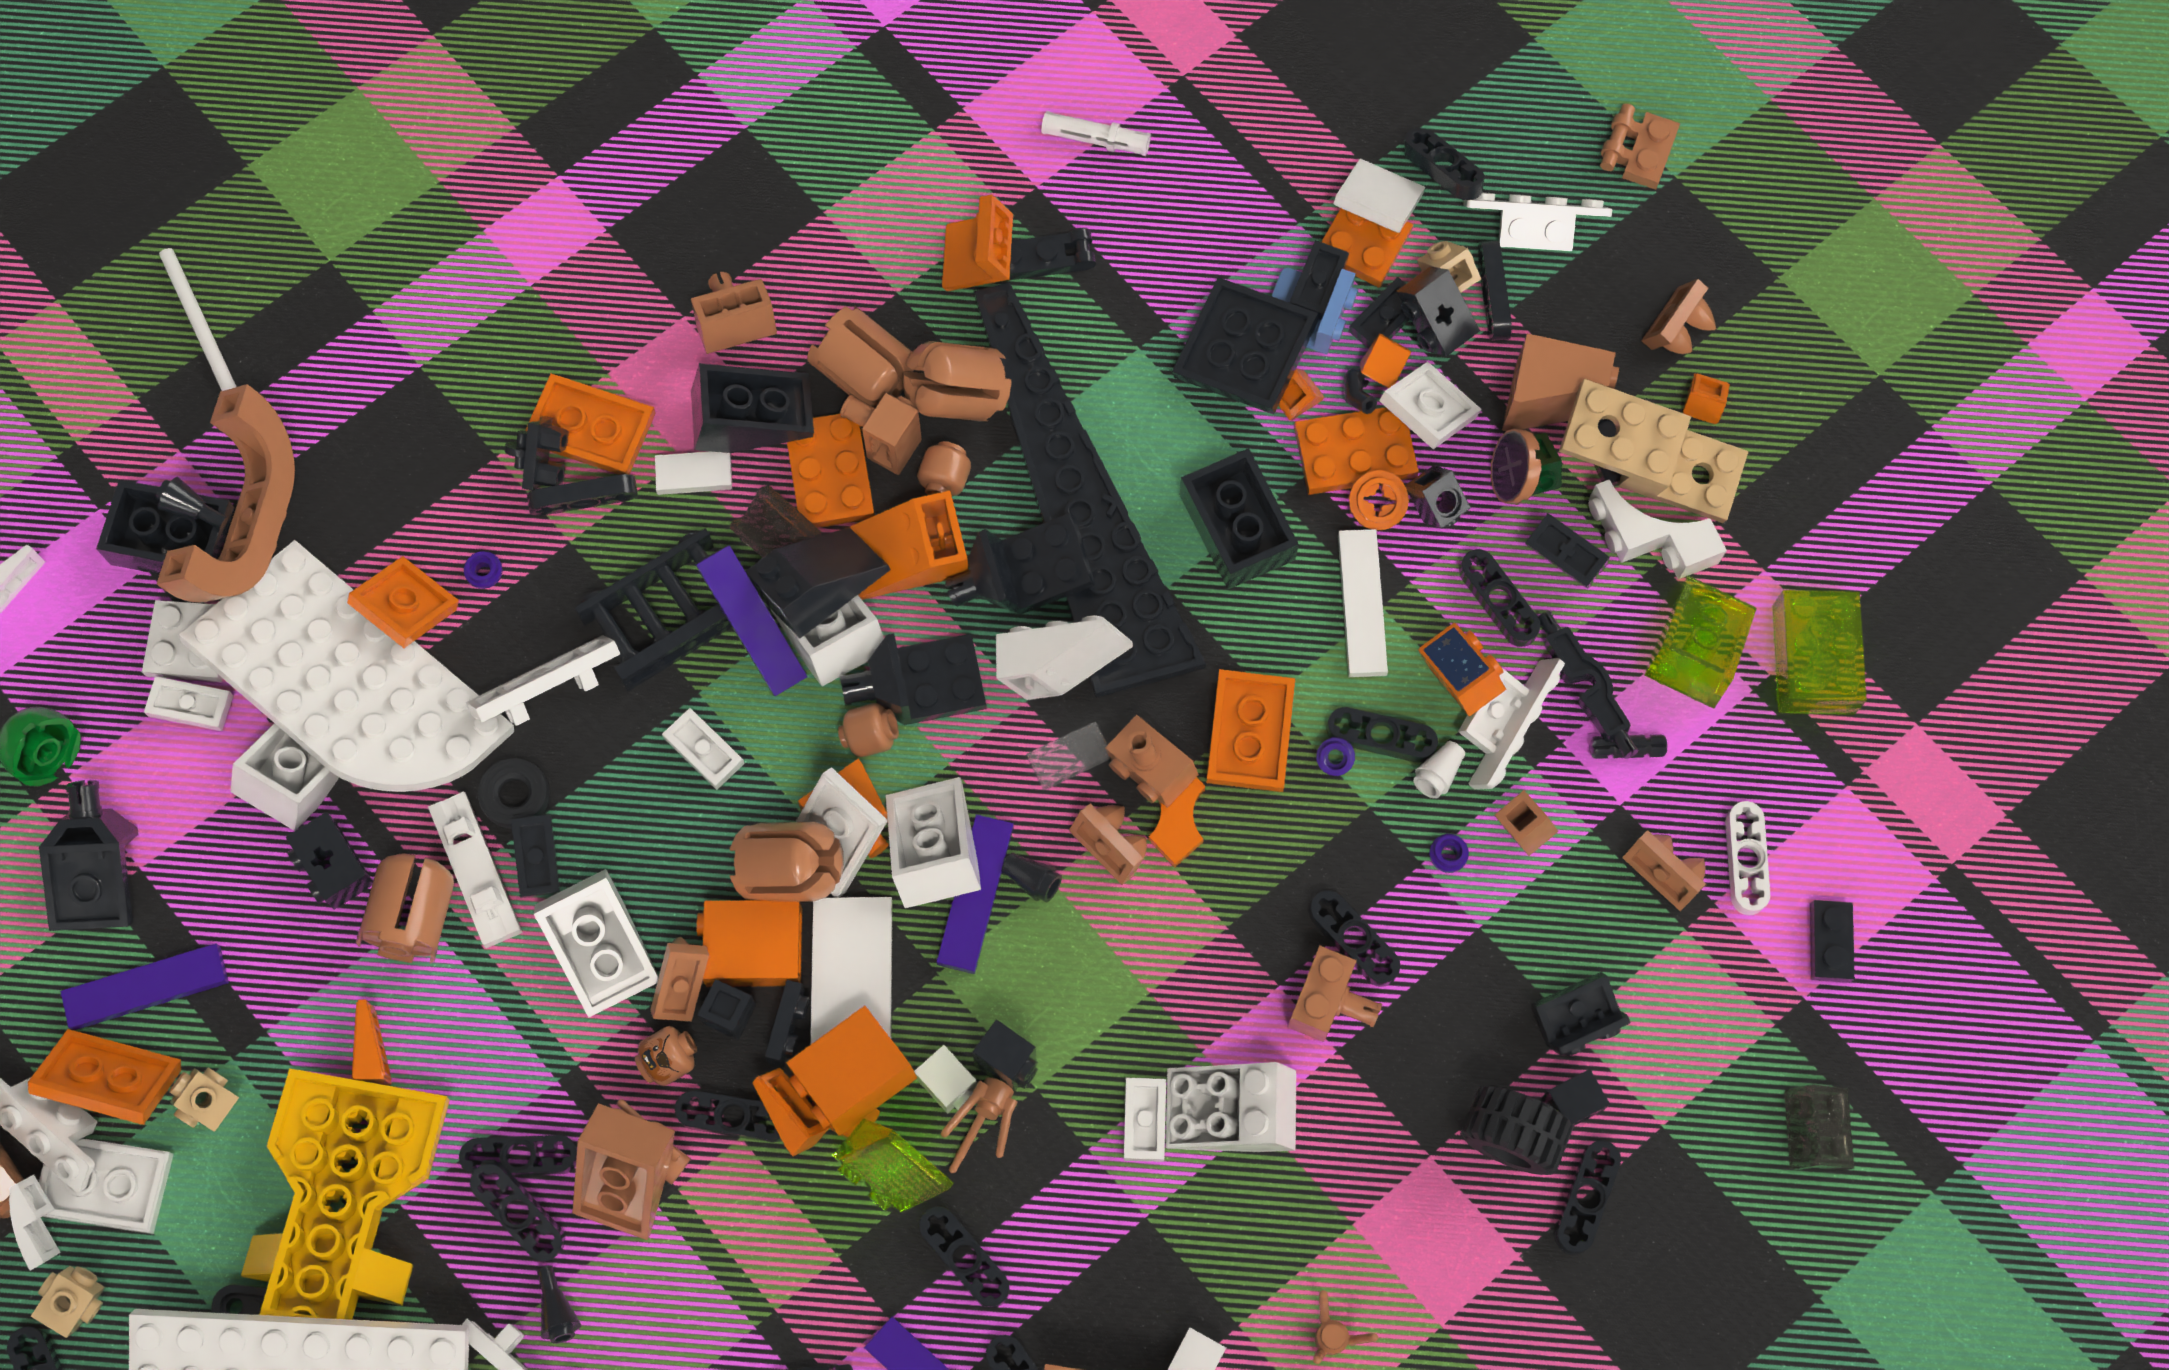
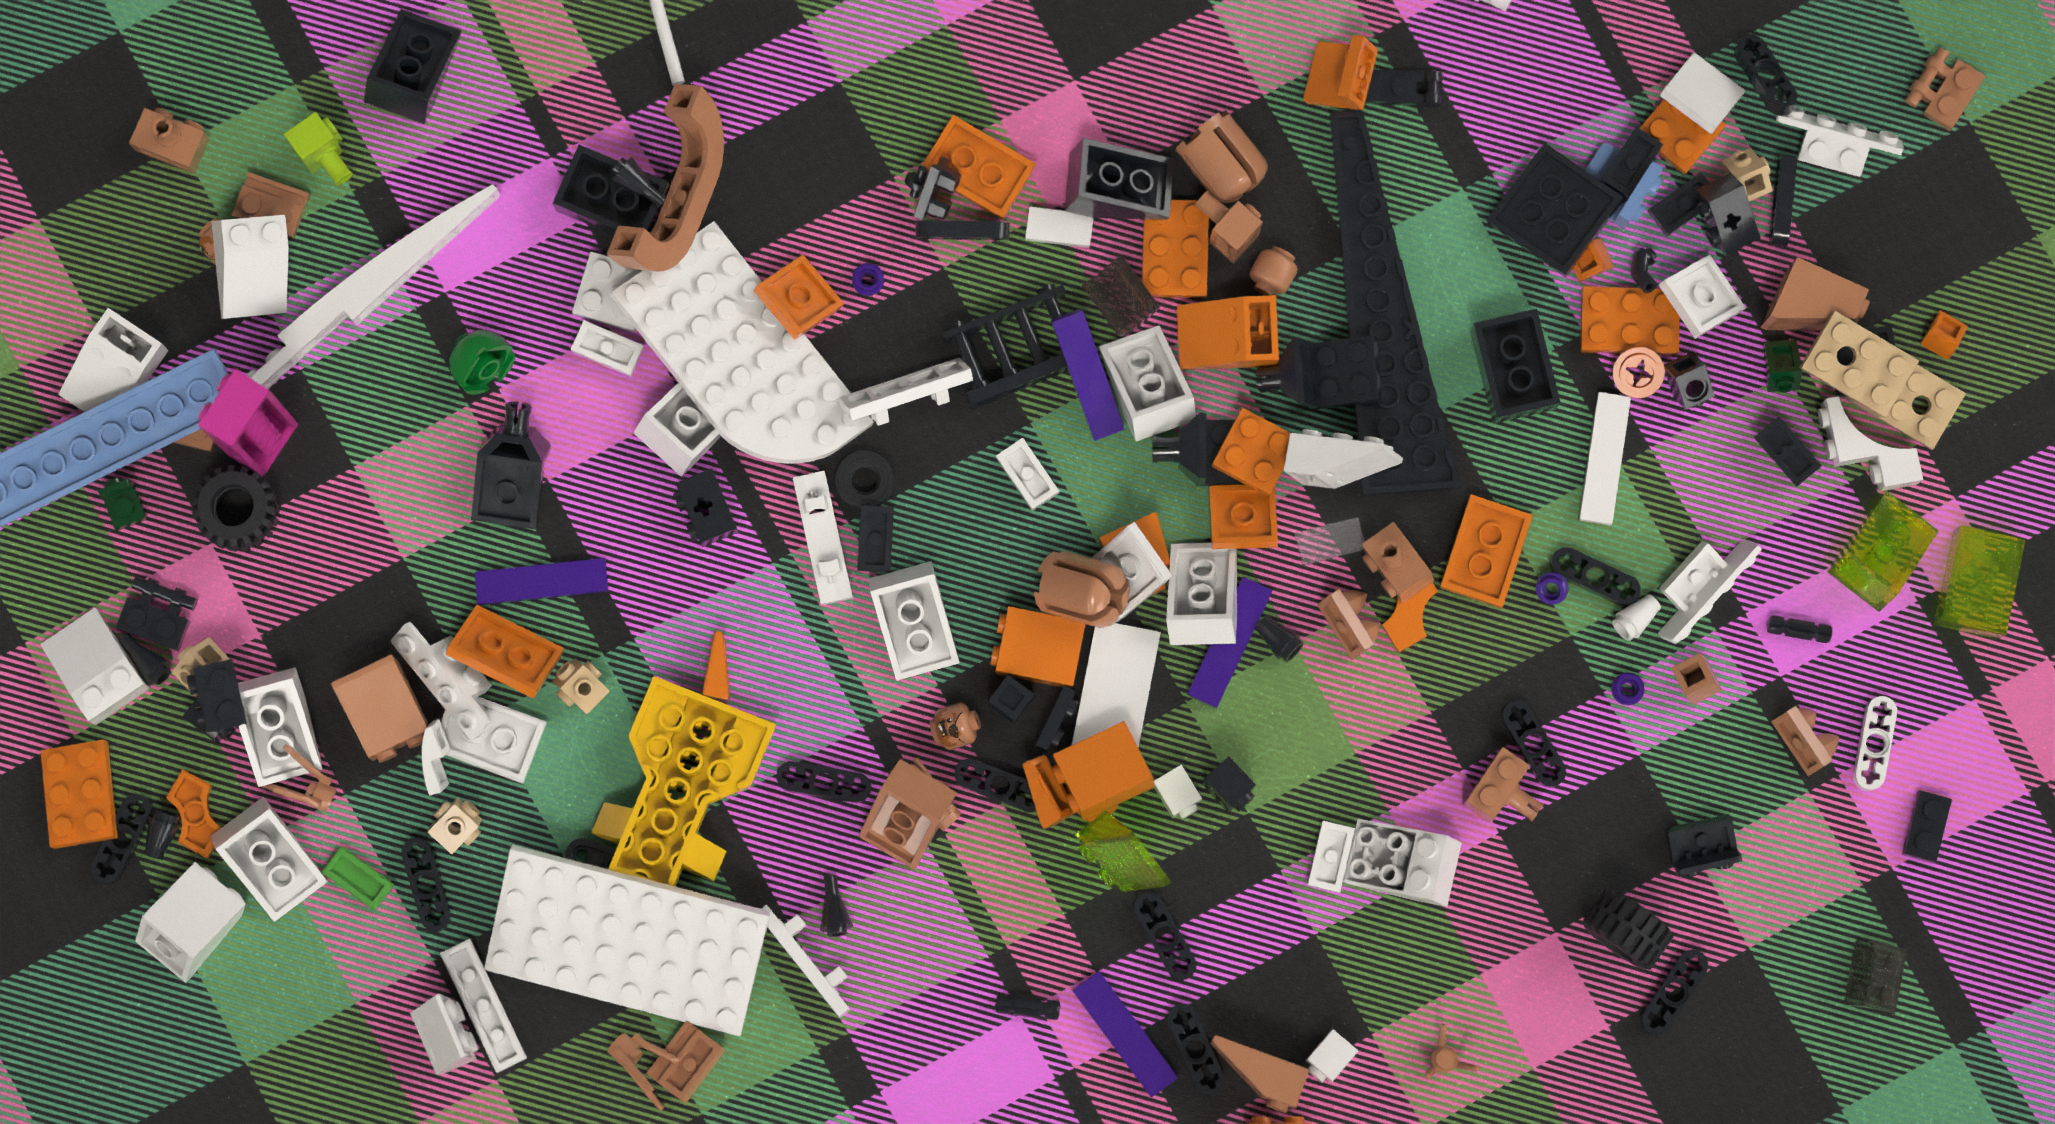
camera: 10 degrees right, 10 degrees up
(387, 904) = (765, 562): nougat cylinder -> none
(527, 1242) = (836, 844): black beam -> none
(679, 981) = (977, 668): nougat tile -> none
(733, 313) = (1118, 92): nougat brick -> none
(815, 577) = (1149, 348): black slope -> none
(868, 730) = (1168, 487): nougat head -> none
(955, 381) = (1299, 197): nougat cylinder -> none
(959, 670) = (1254, 452): none -> orange plate
(962, 745) = (1242, 517): none -> orange plate
(992, 1099) = (1211, 816): nougat plant -> none
(1384, 361) = (1671, 248): orange slope -> none
(1463, 669) = (1674, 537): brick -> none
(1515, 466) = (1760, 368): tile -> none
(1523, 614) = (1739, 496): black beam -> none
(1577, 1098) = (1683, 913): black brick -> none
(1598, 700) = (1781, 586): black piece -> none
(1684, 306) = (1945, 249): nougat tile -> none

